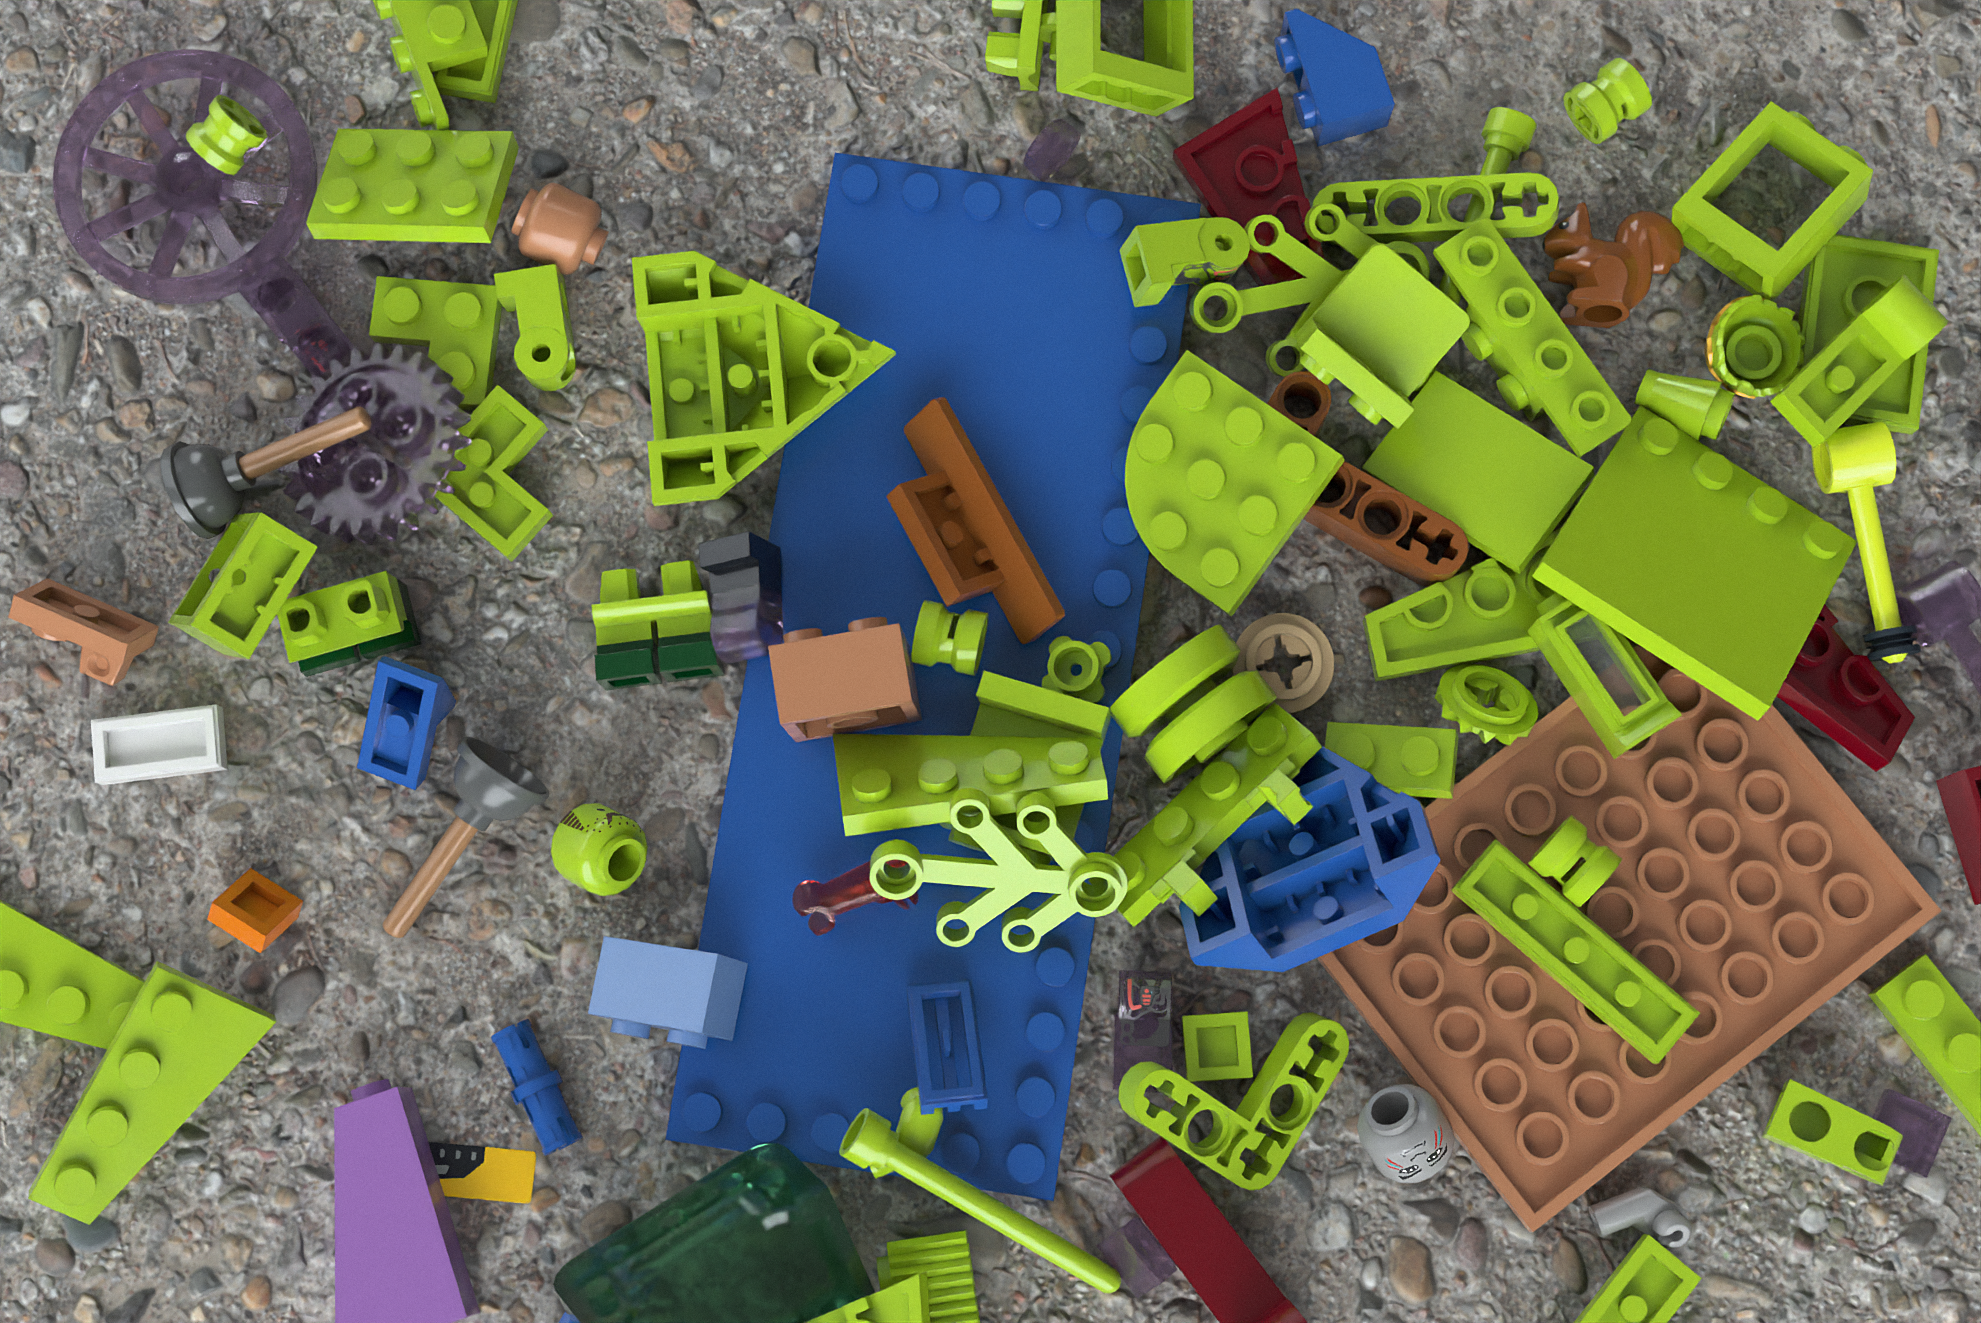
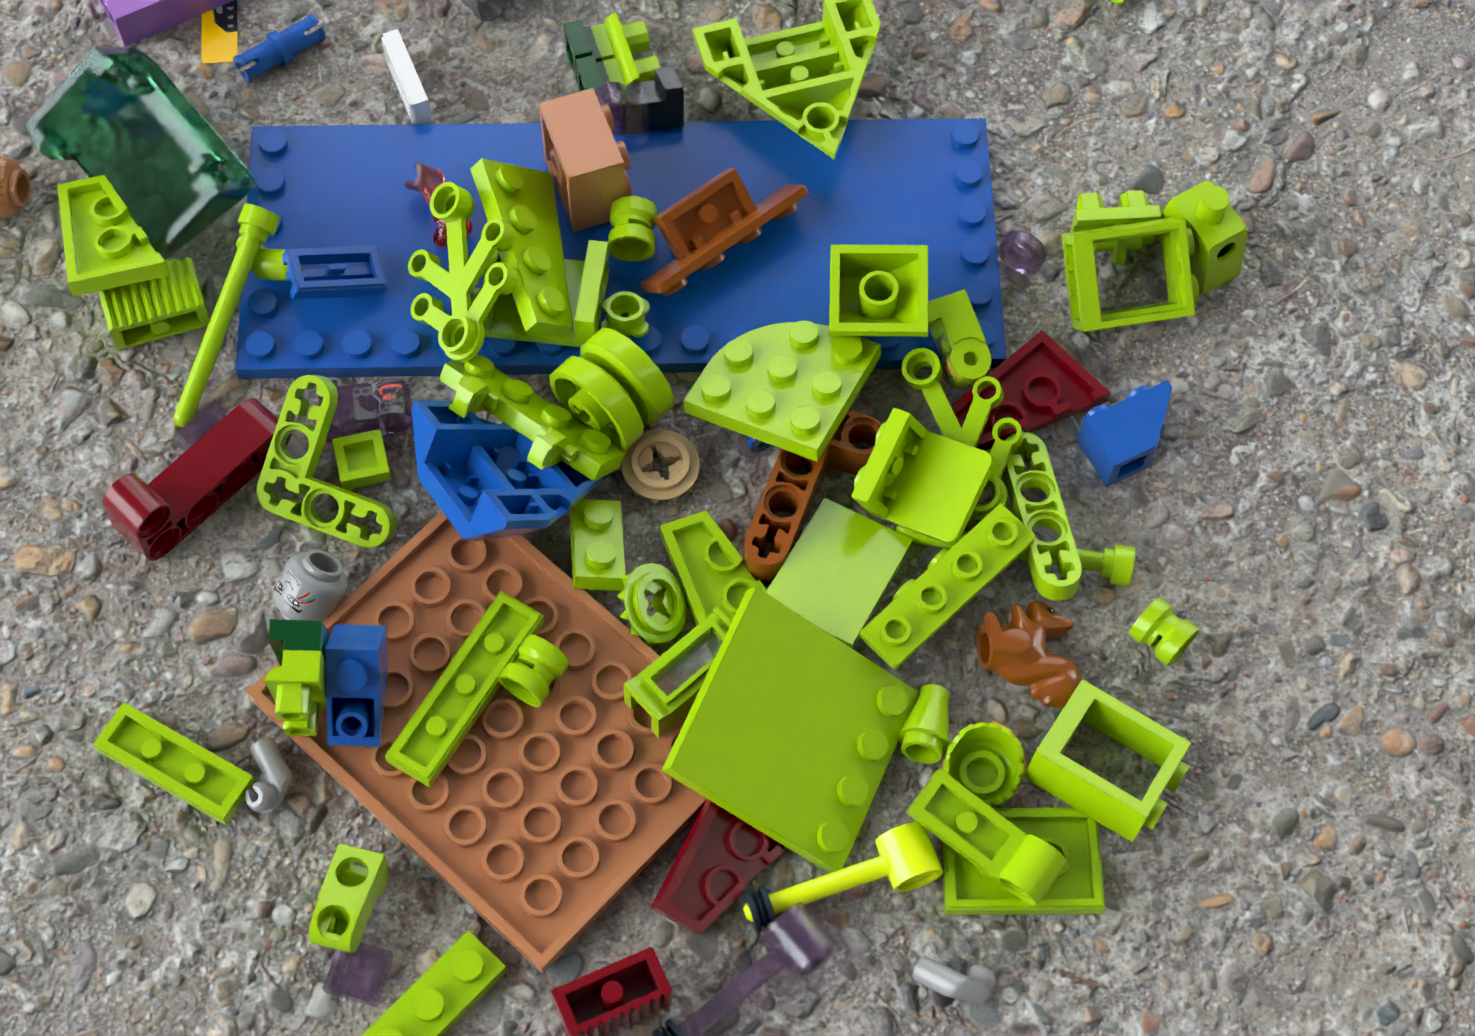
camera: 70 degrees right, 15 degrees down
(599, 849) = (447, 50): lime head -> none
(631, 913) = (406, 78): none -> white tile
(667, 989) = (352, 102): medium blue brick -> none
(1127, 336) = (878, 290): none -> lime slope
(1560, 1085) = (356, 684): none -> blue slope
(1568, 1147) = (301, 678): none -> lime hips

